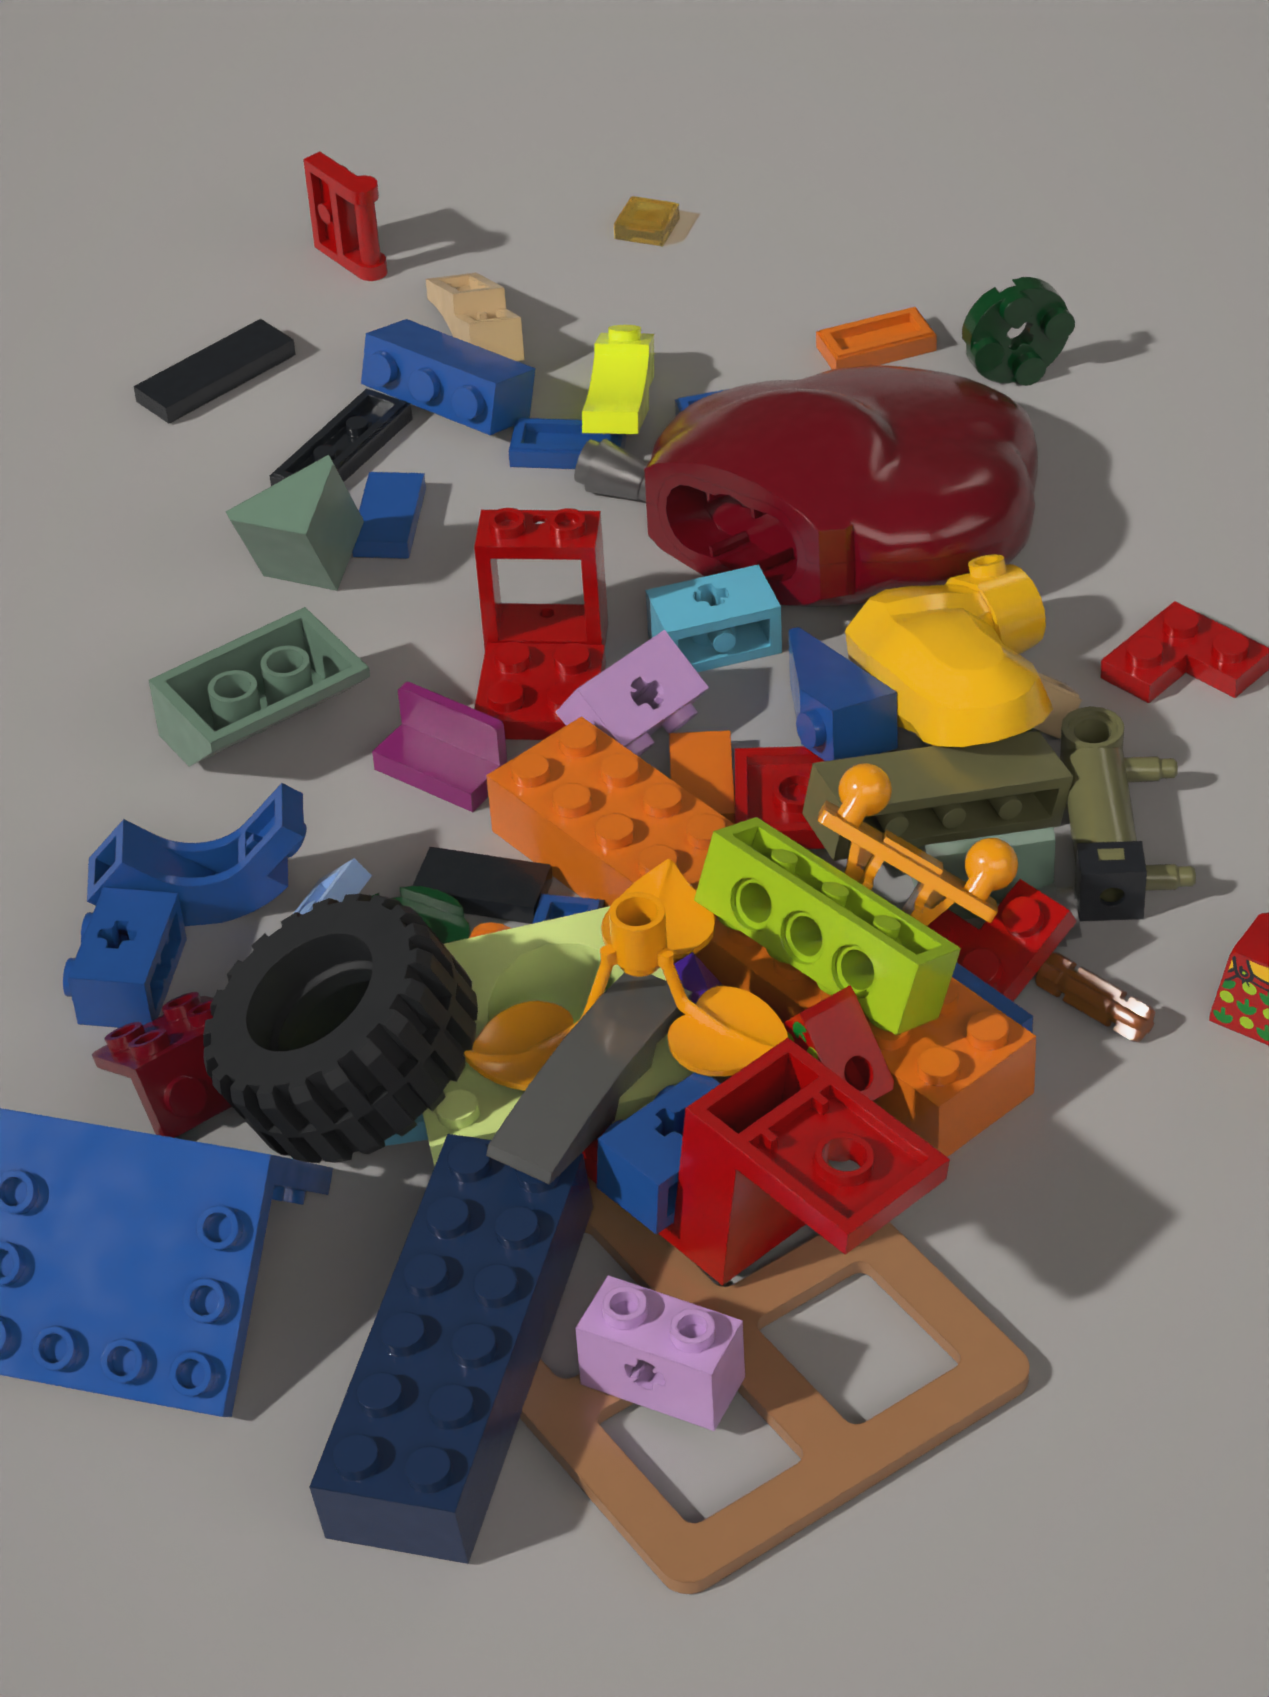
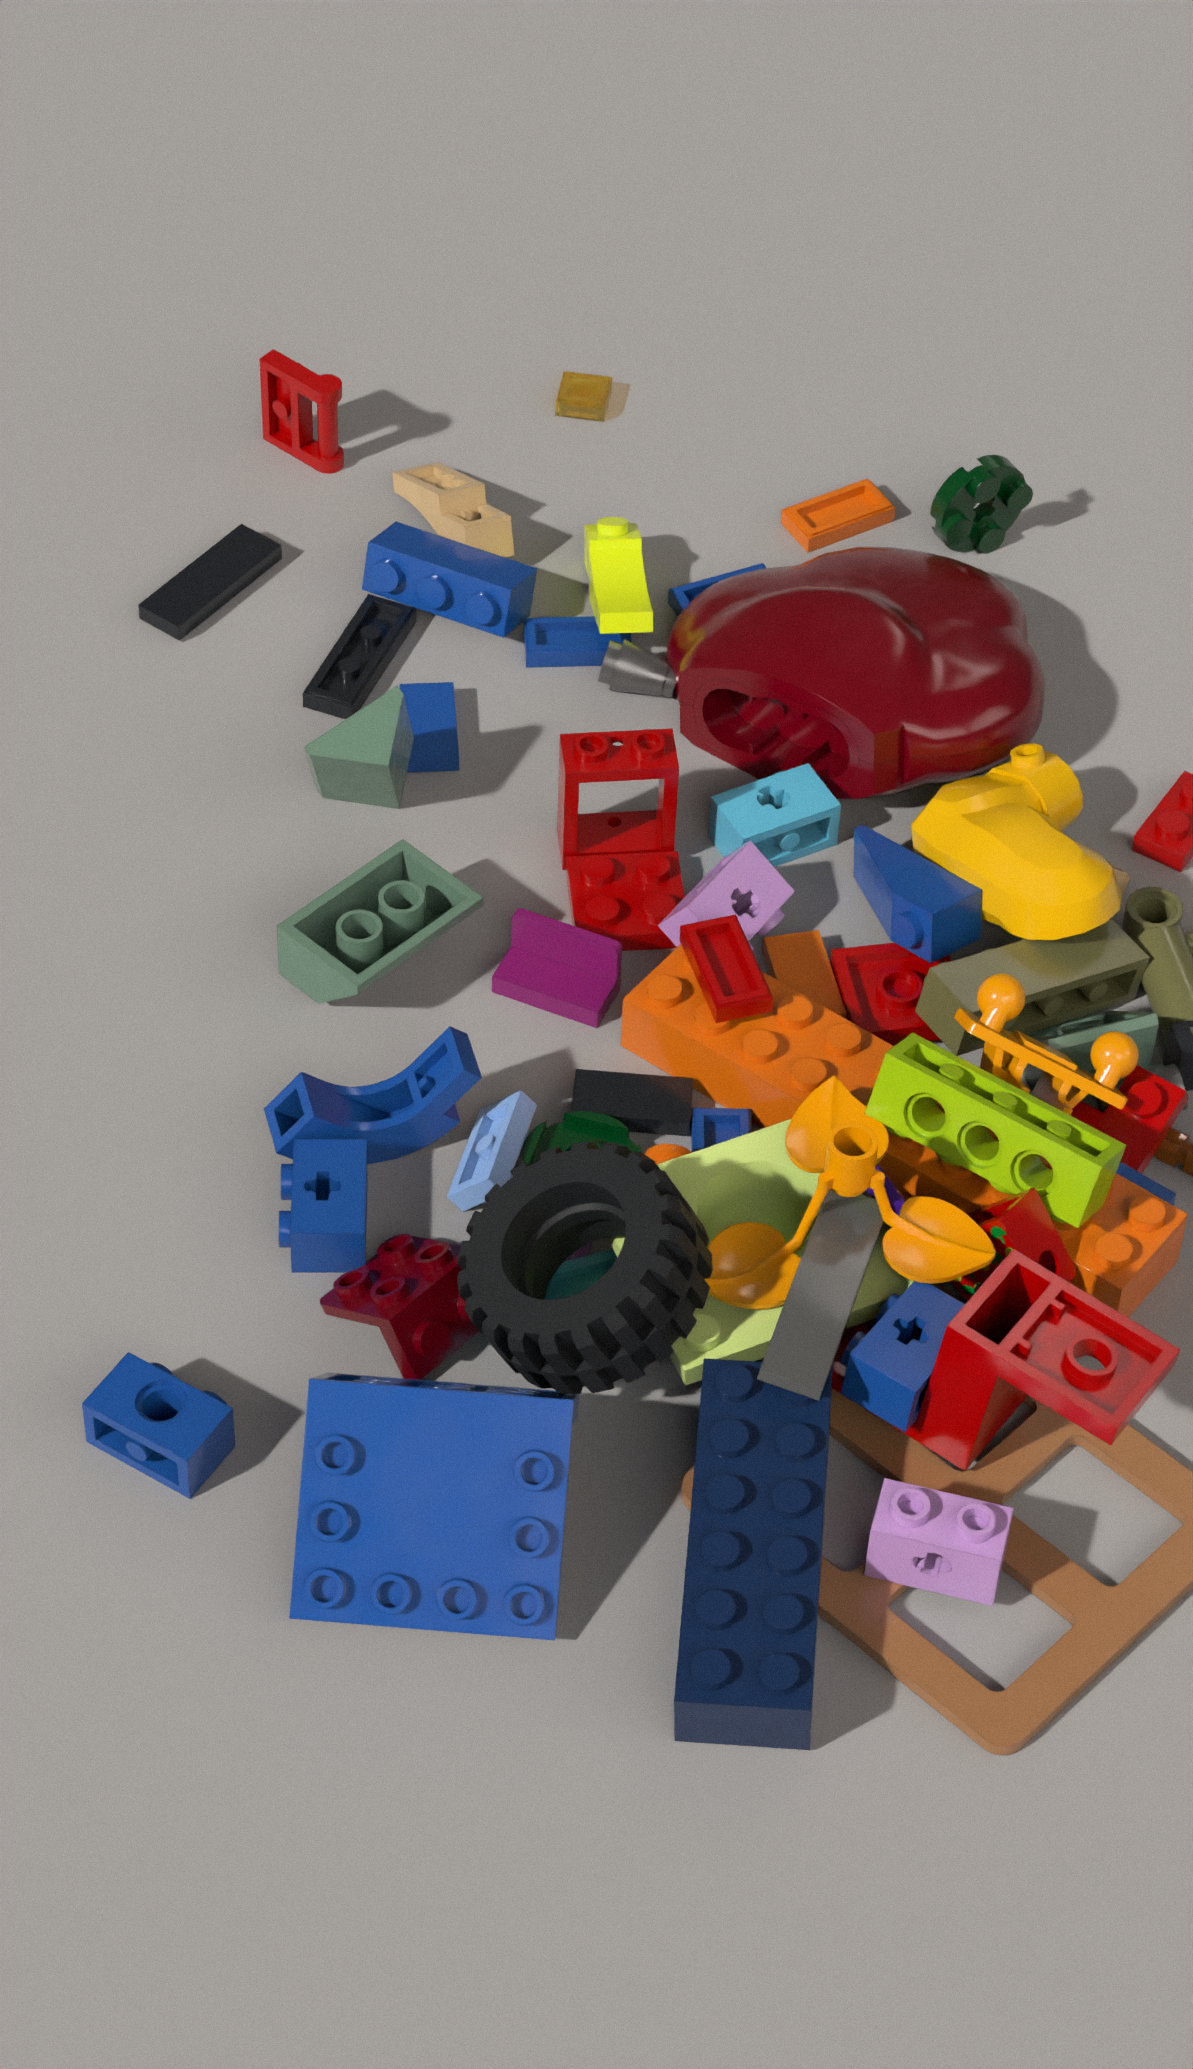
camera: 15 degrees left, 5 degrees up
(597, 750) = (726, 968): none -> red tile

